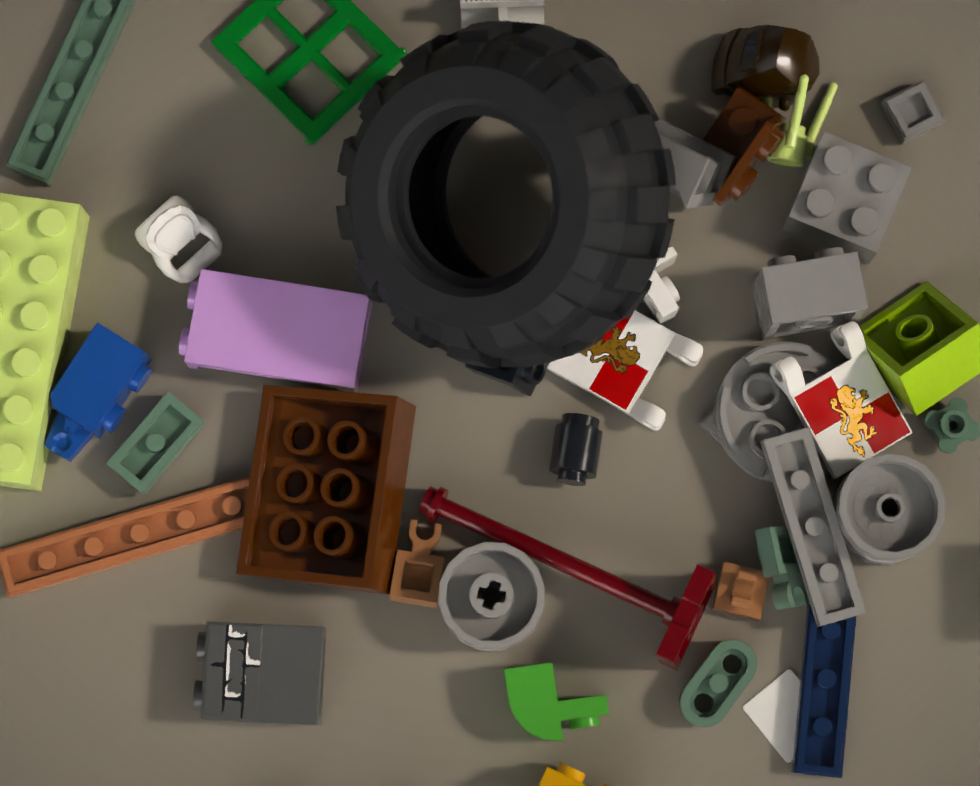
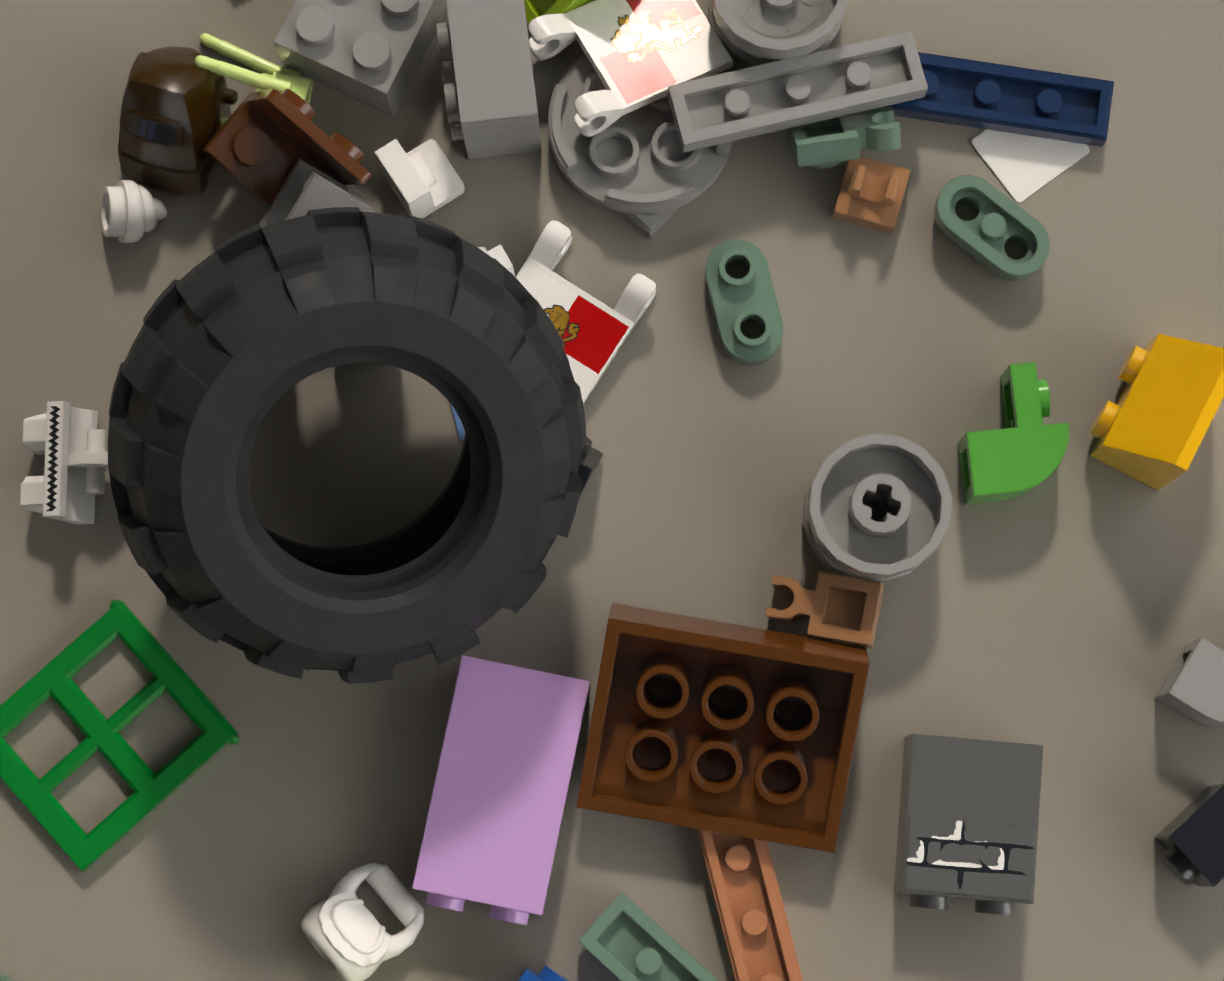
camera: 90 degrees left, 0 degrees up
(576, 449) = (679, 393): black brick -> none
(651, 496) = (743, 300): none -> sand green plate
(678, 614) = (909, 263): dark red tile -> none
(694, 40) = (129, 211): none -> white plate
(730, 247) = (419, 178): none -> white bracket

